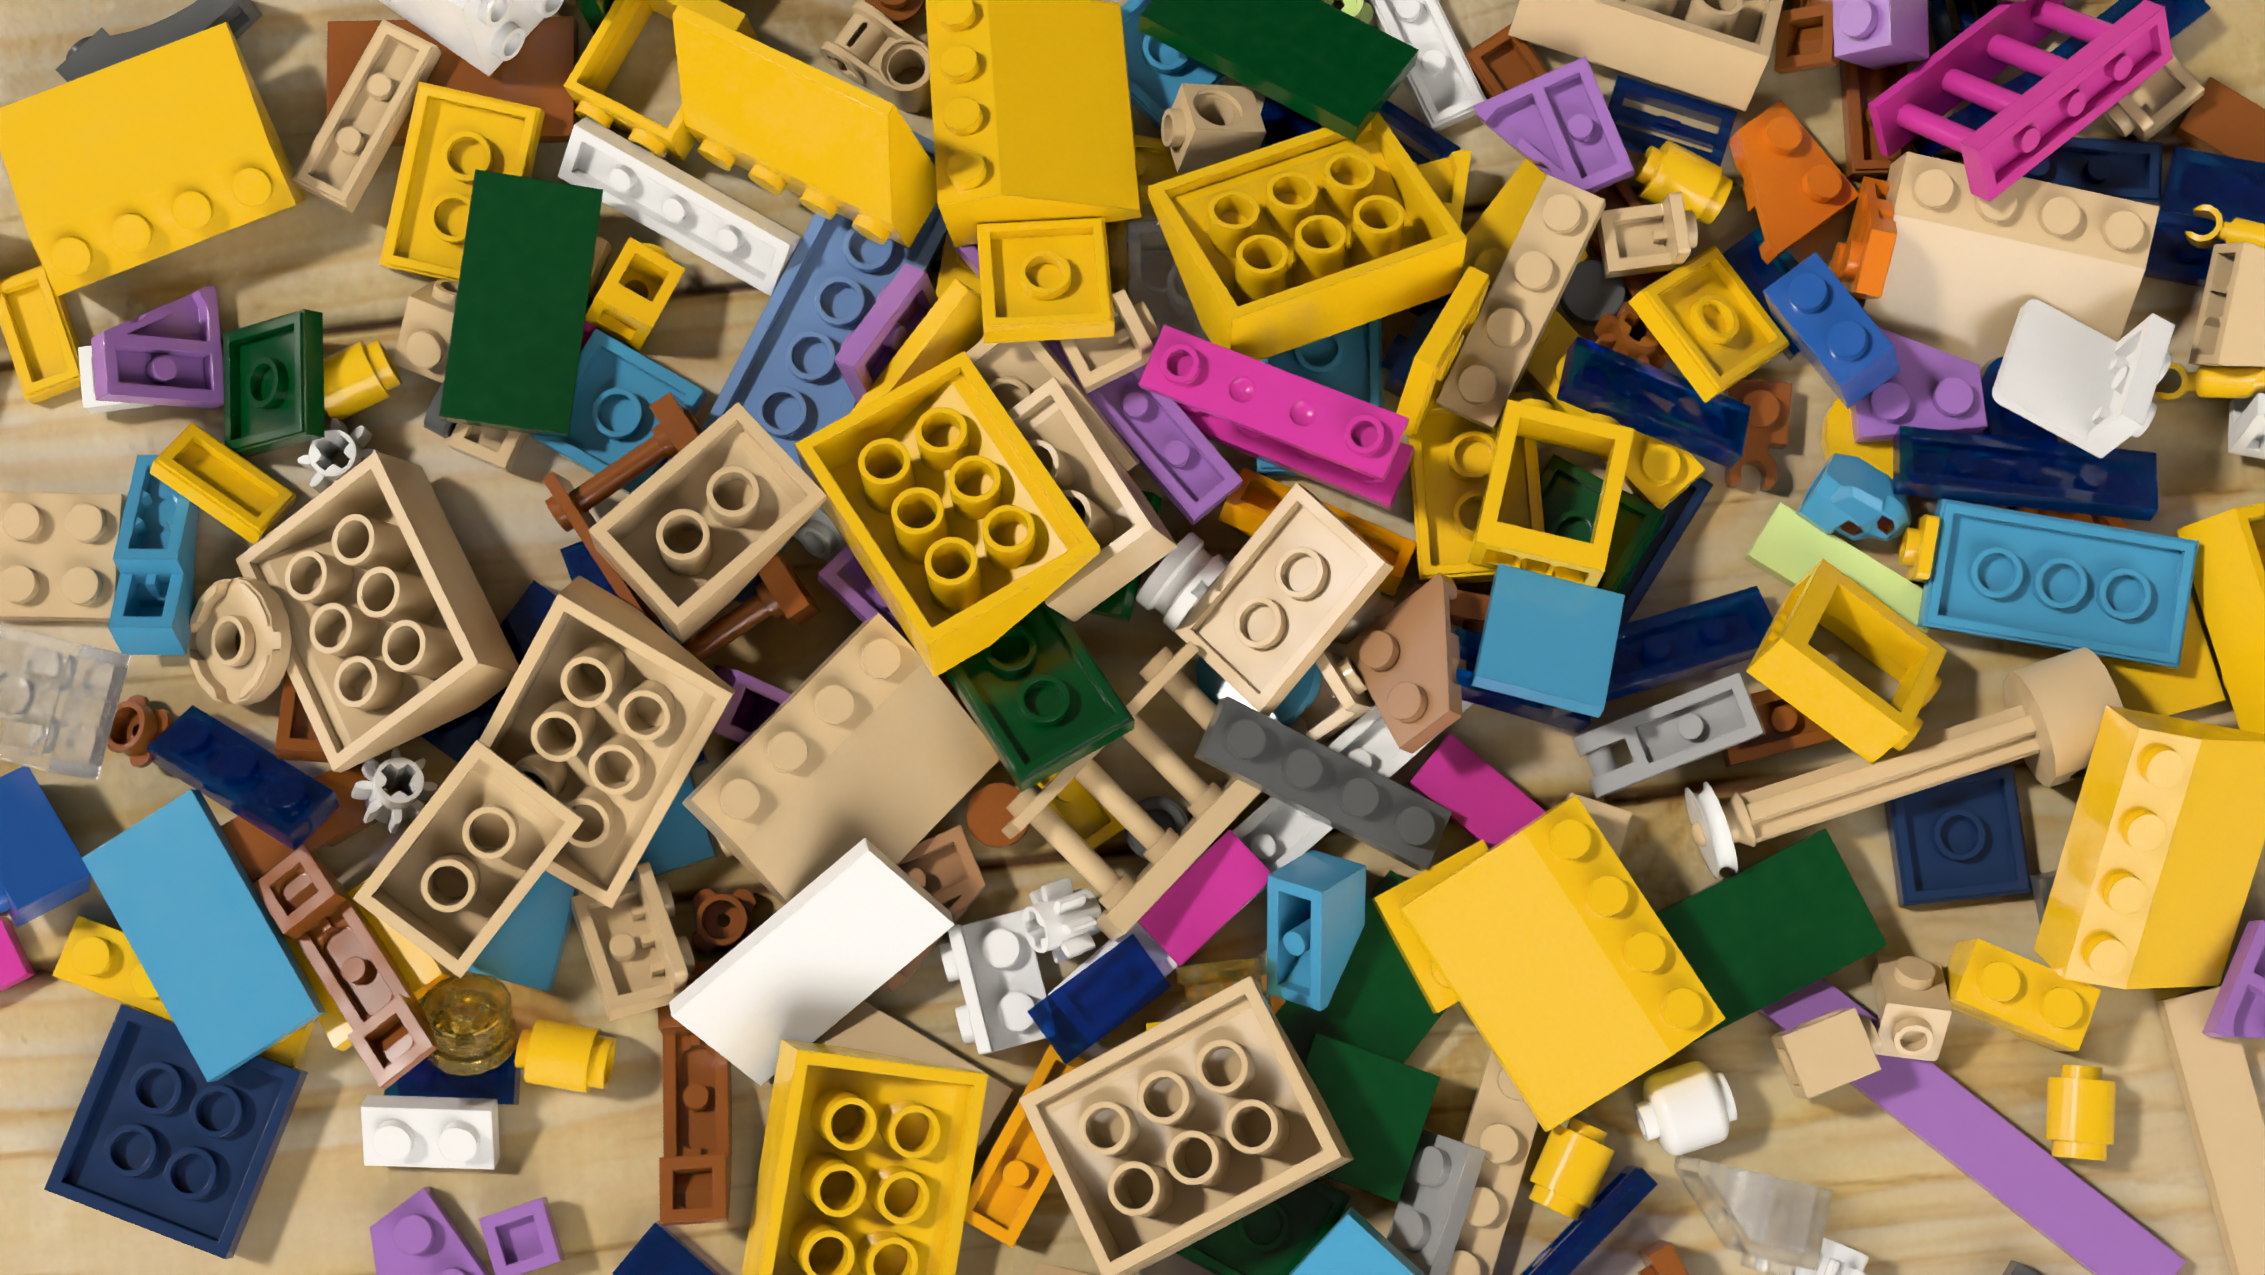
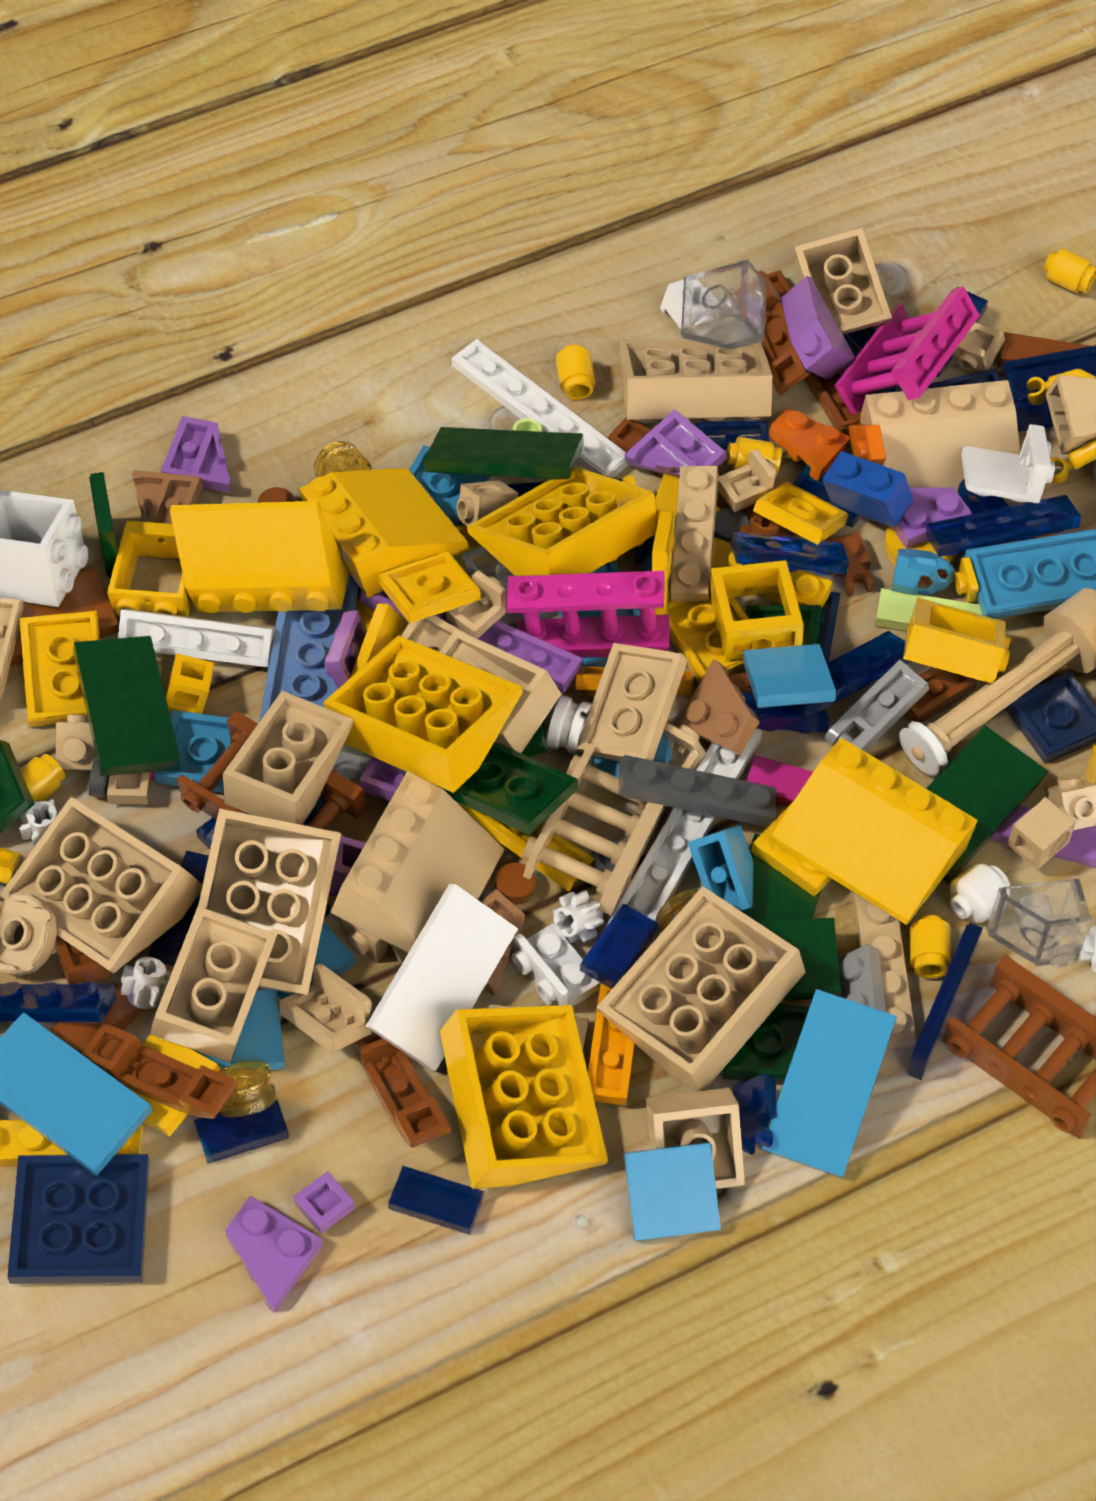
camera: 25 degrees left, 25 degrees down
(430, 1132) = (242, 1163): white plate -> none
(566, 1056) = (310, 1091): yellow brick -> none
(711, 907) = (373, 980): dark orange plate -> none
(1205, 897) = (655, 874): dark pink tile -> none

